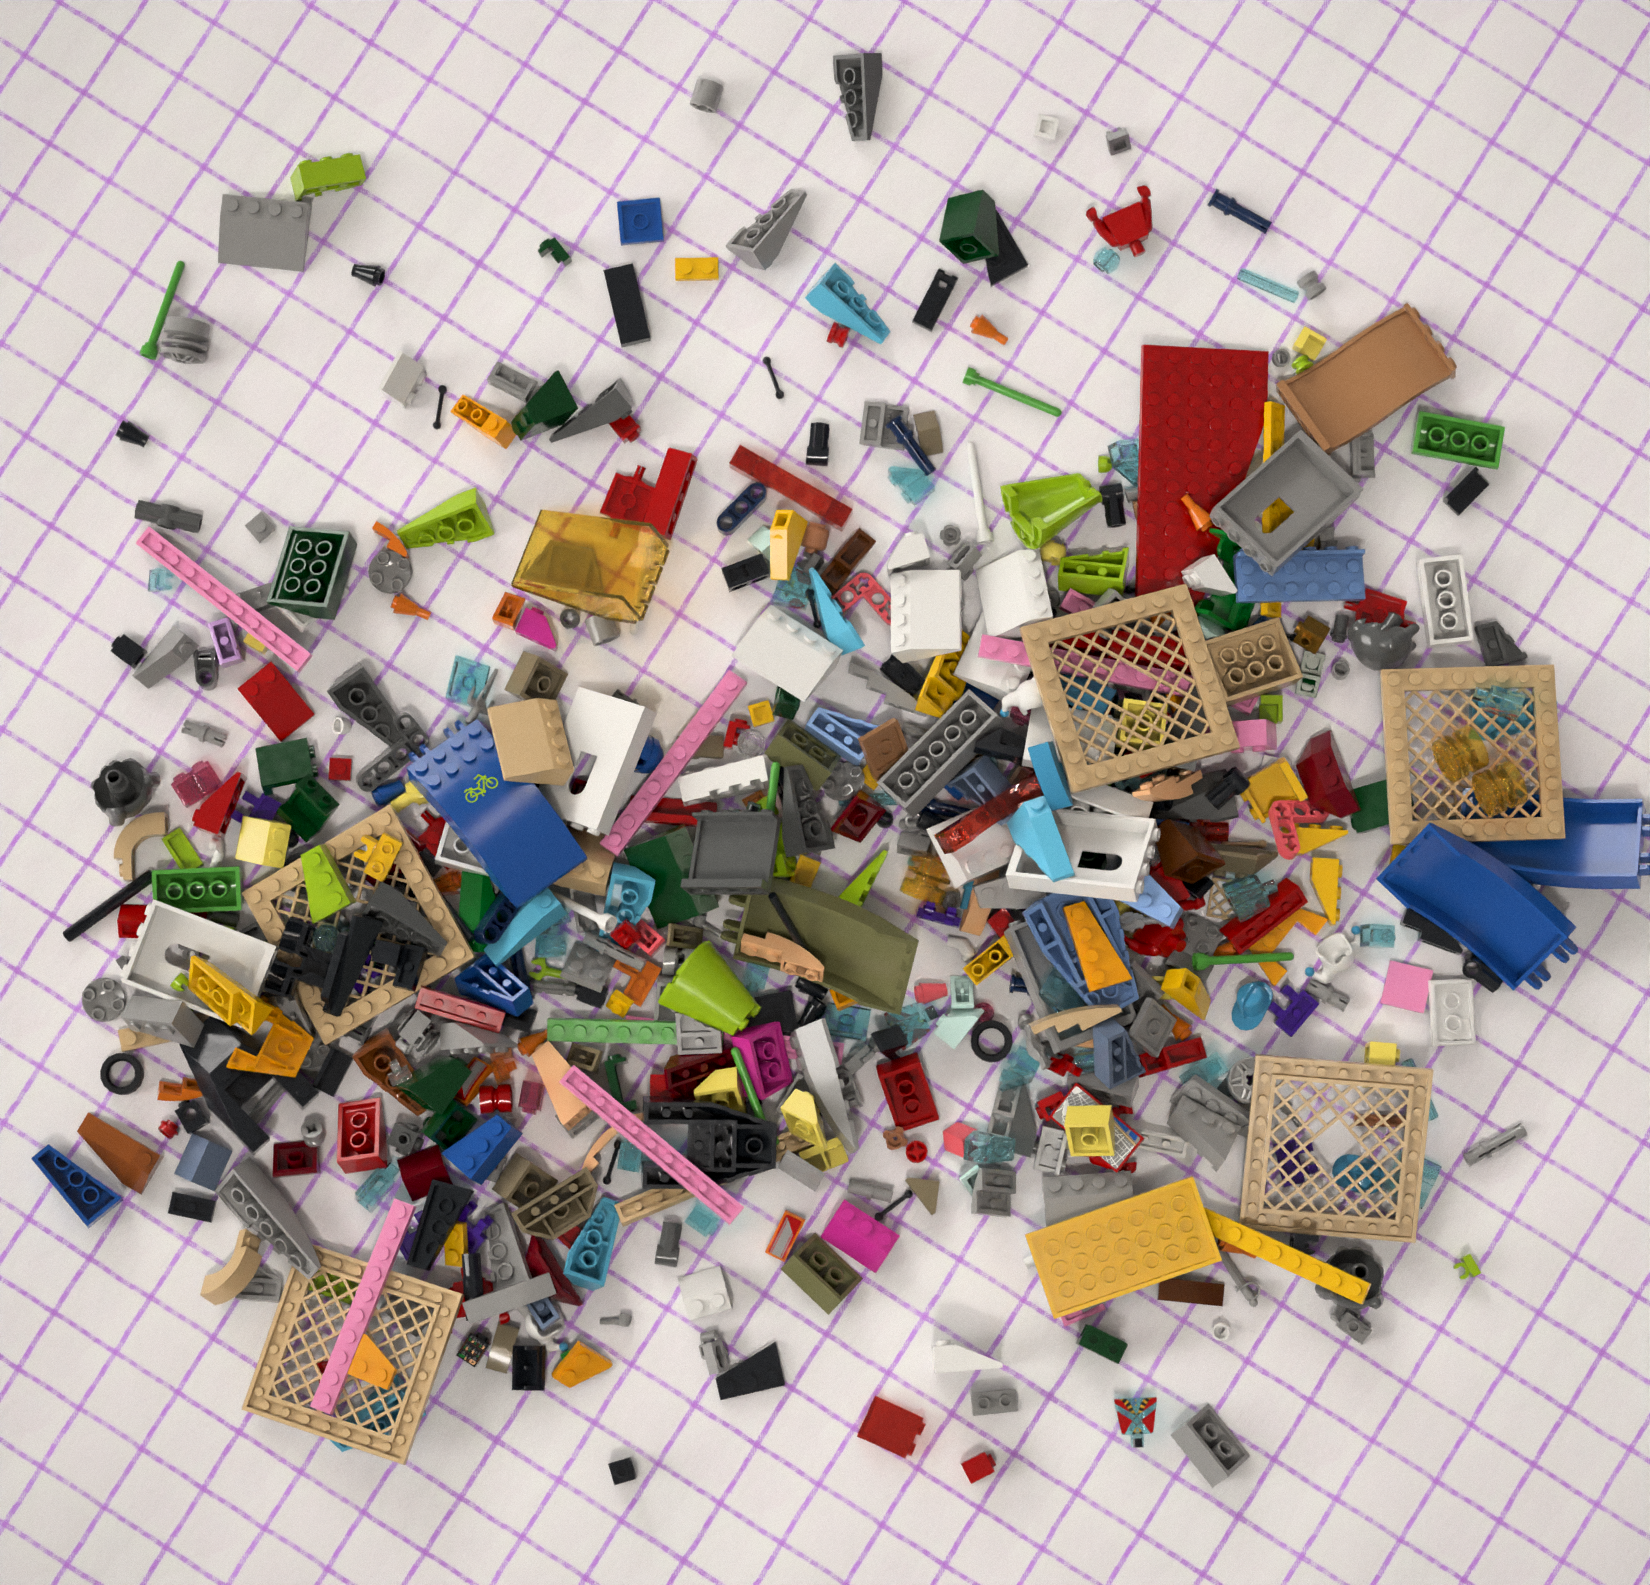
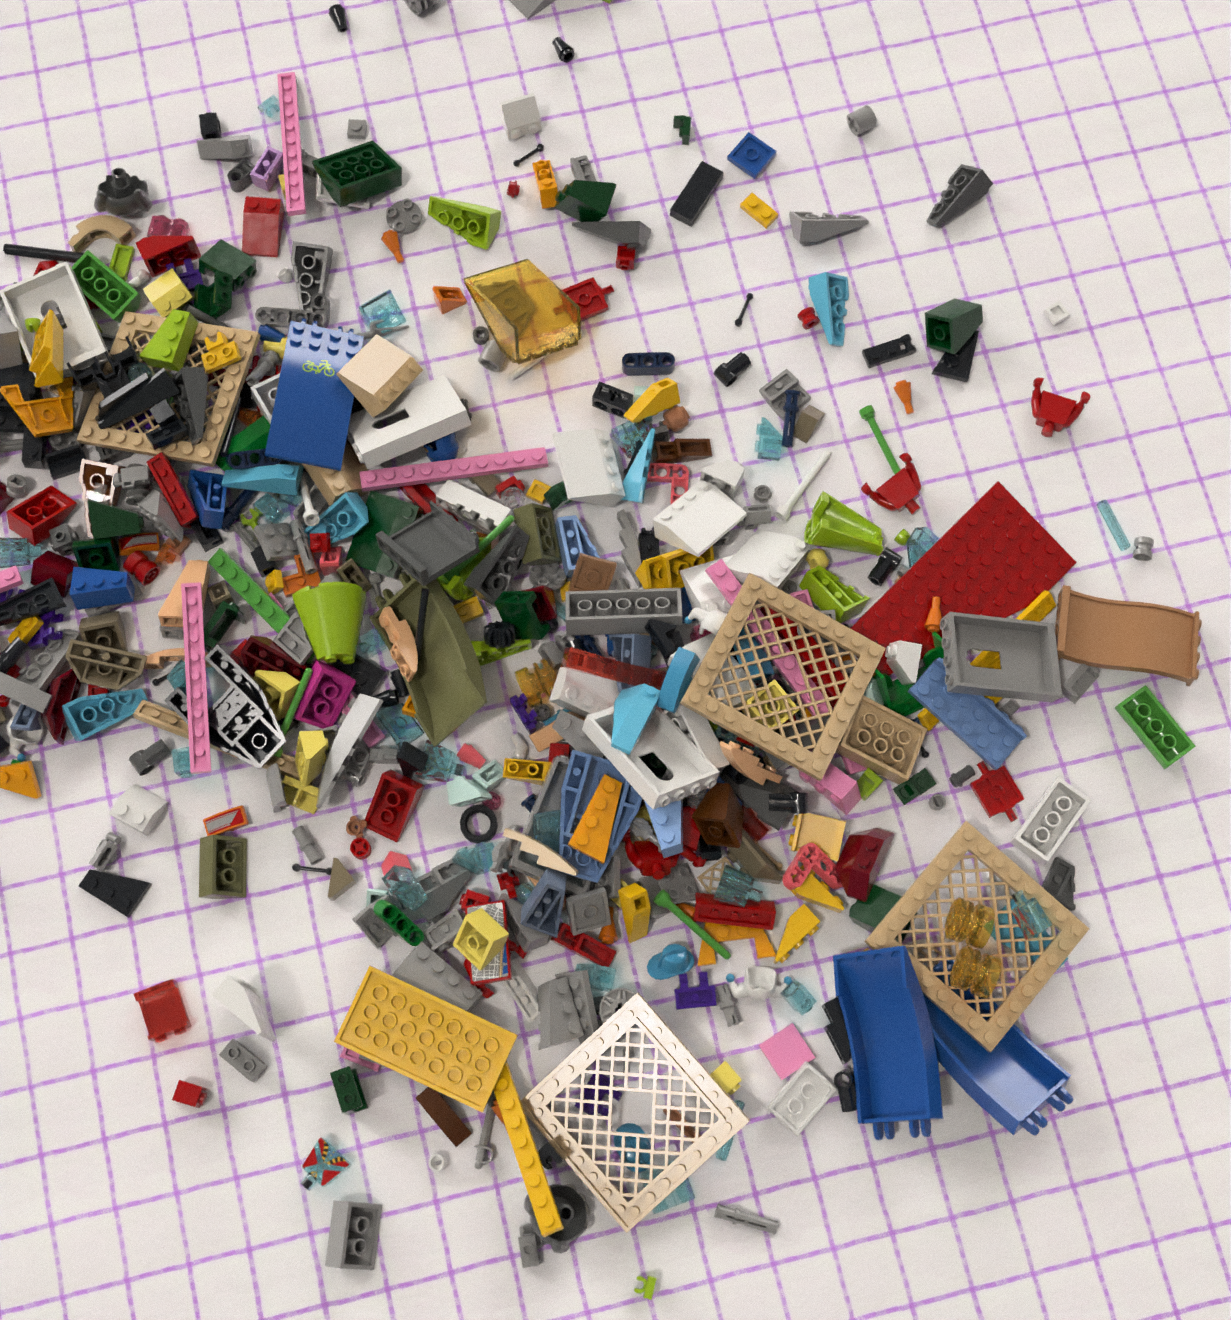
camera: 40 degrees right, 10 degrees down
(168, 516) = (311, 77): dark grey piece -> none
(204, 733) = (203, 209): light grey pin -> none
(225, 917) = (103, 319): dark grey pin -> none
(326, 830) = (203, 317): none -> dark grey piece
(340, 769) = (258, 298): red plate -> none
(394, 543) = (422, 201): orange slope -> none
(416, 825) = (264, 365): none -> light grey pin
(460, 454) = (513, 189): none -> red plate
(529, 1043) = (196, 553): orange cone -> none
(531, 1097) = (160, 584): clear pink brick -> none
(535, 678) = (425, 349): dark tan slope -> none
(536, 628) = (455, 321): dark pink slope -> none
(624, 1320) = (74, 777): light grey hand -> none
(670, 491) = (614, 317): red panel -> none
(770, 475) = (693, 383): clear red arch -> none
(858, 870) = (499, 634): none -> black gear
(859, 839) = (518, 610): none -> dark green panel
(860, 1236) = (271, 867): dark pink slope -> none
(1011, 1180) = (391, 919): none -> green beam
(1064, 425) = (899, 490): none -> red torso
(1106, 260) = (1021, 419): clear light blue piece -> none
(1118, 141) = (1095, 358): flat silver tile -> none
(1229, 206) = (1133, 457): dark blue pin -> none
(1284, 358) = (1083, 577): light grey hinge -> none
(1302, 364) = (1092, 589): lime bush -> none
(1309, 343) = (1108, 582): light yellow panel -> none
(1310, 634) = (938, 760): pearl gold brick -> none
(1382, 644) = (983, 809): dark grey piece -> none
(1465, 492) = (1129, 765): black panel -> none

